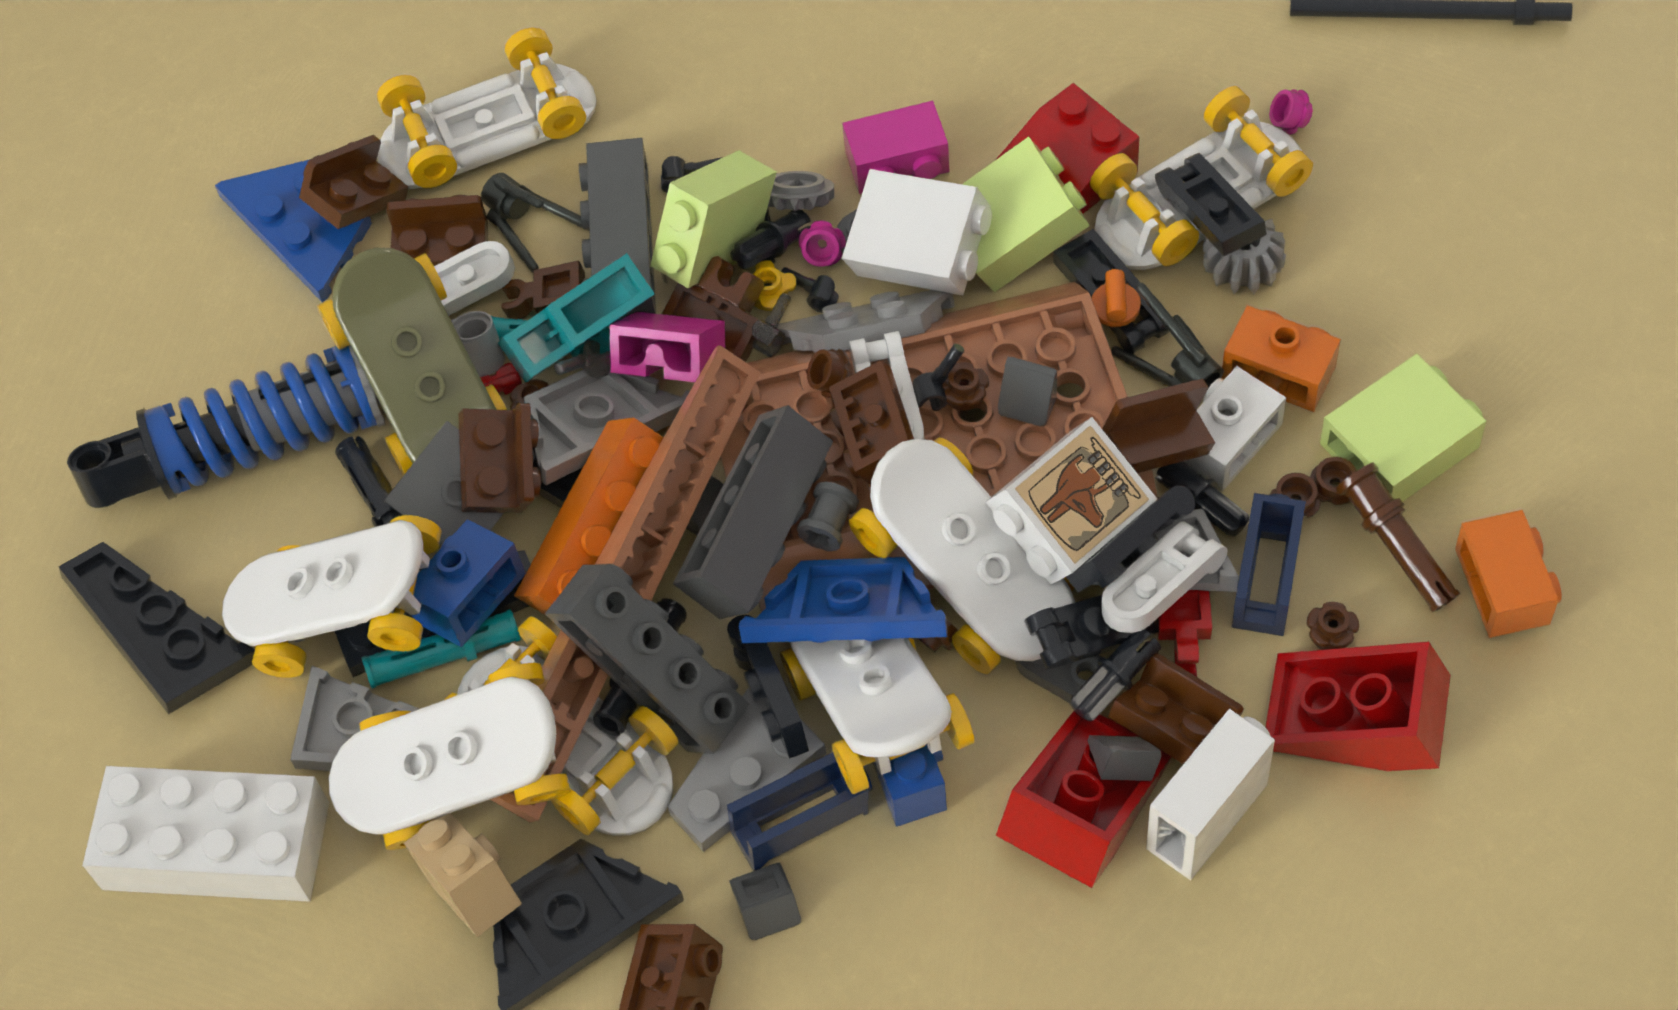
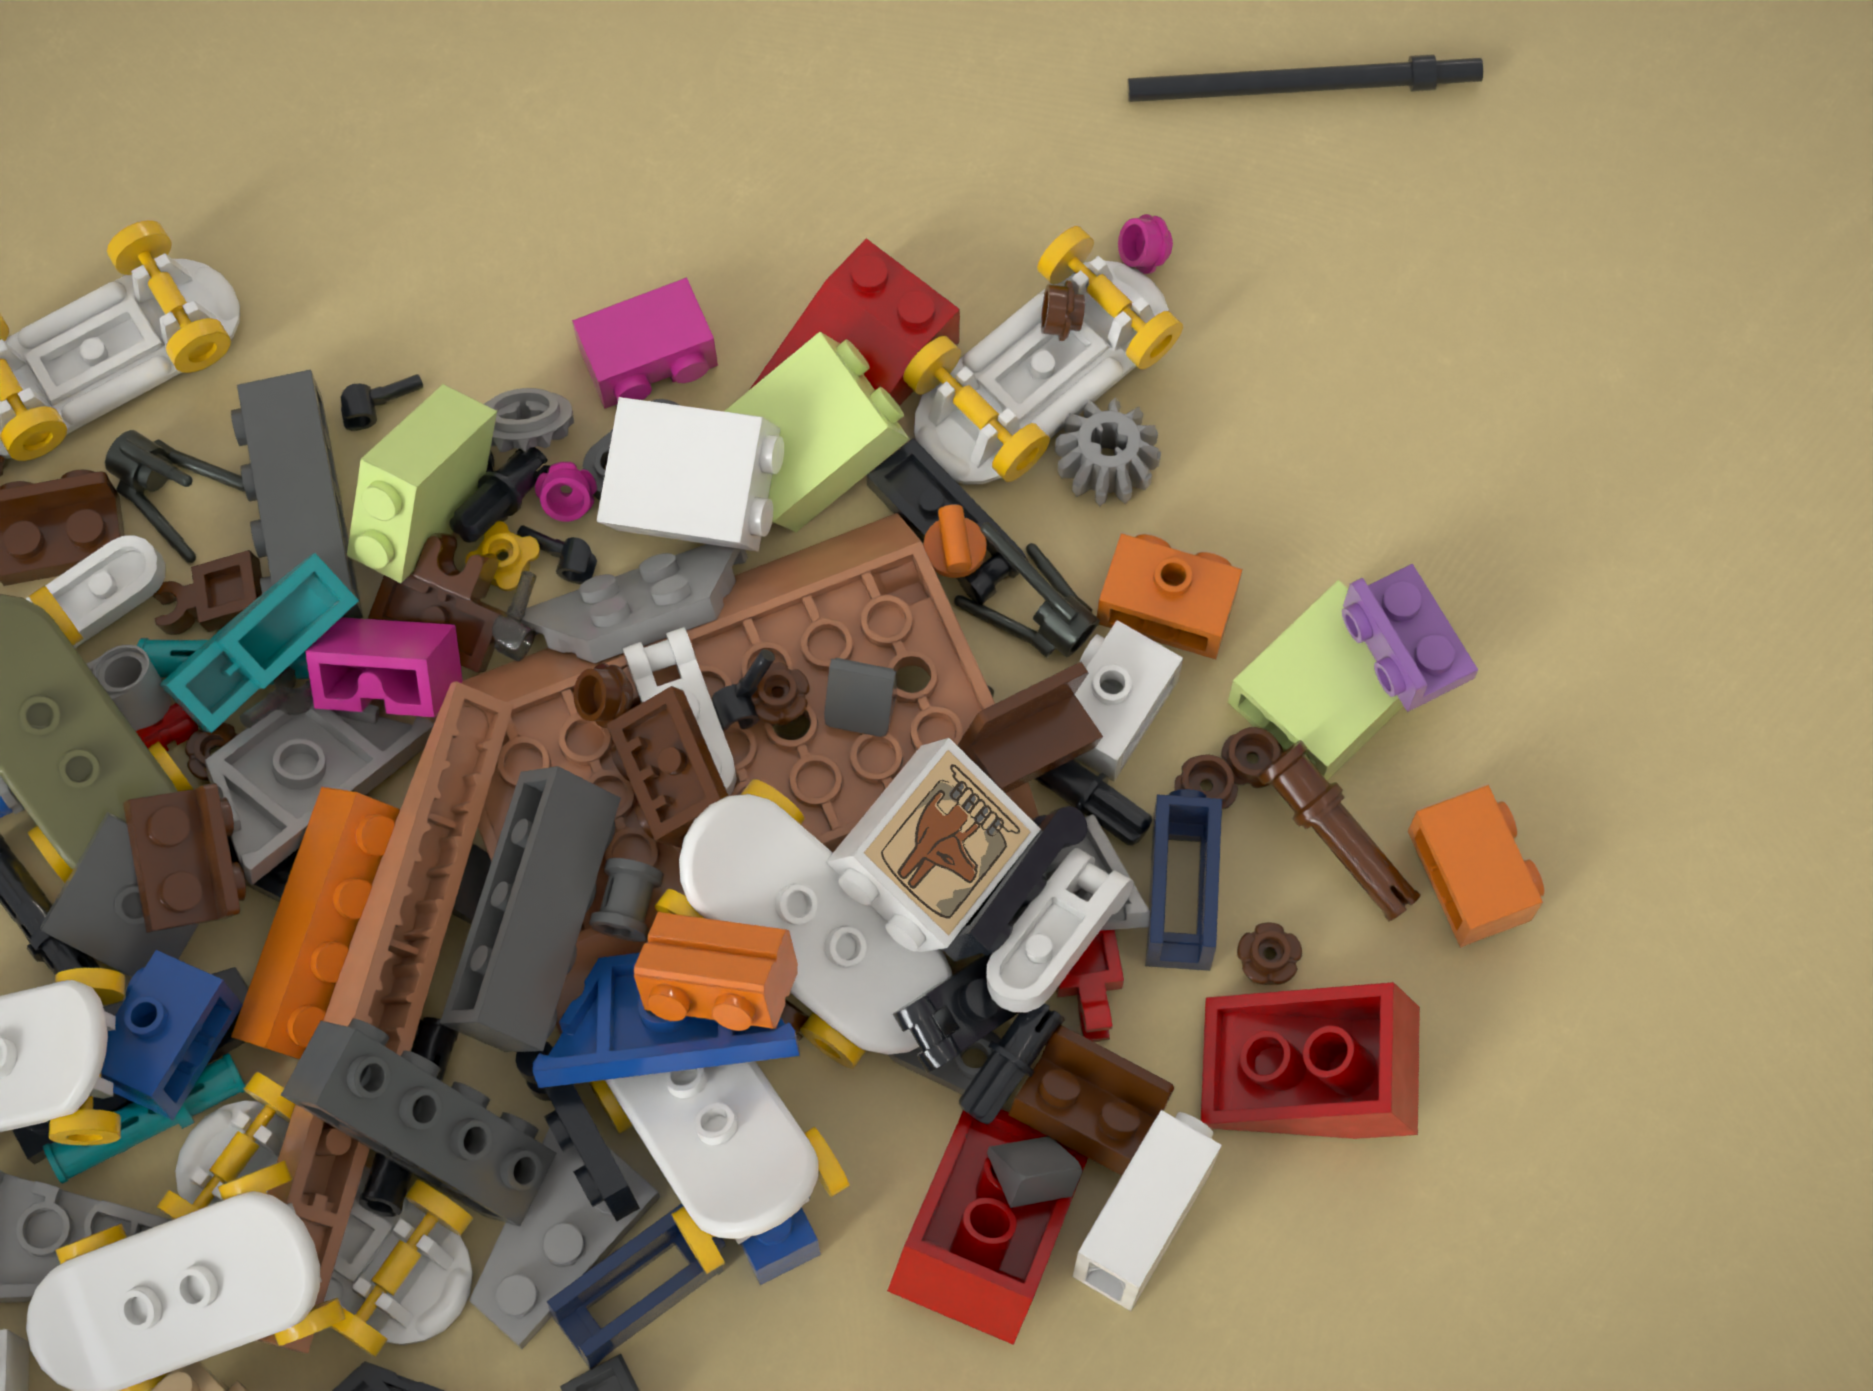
camera: 15 degrees left, 10 degrees up
(890, 565) = (716, 971): none -> orange brick
(1211, 204) = (1062, 398): black plate -> none
(1219, 146) = (1062, 310): none -> reddish brown plate
(1467, 396) = (1408, 637): none -> medium lavender bracket

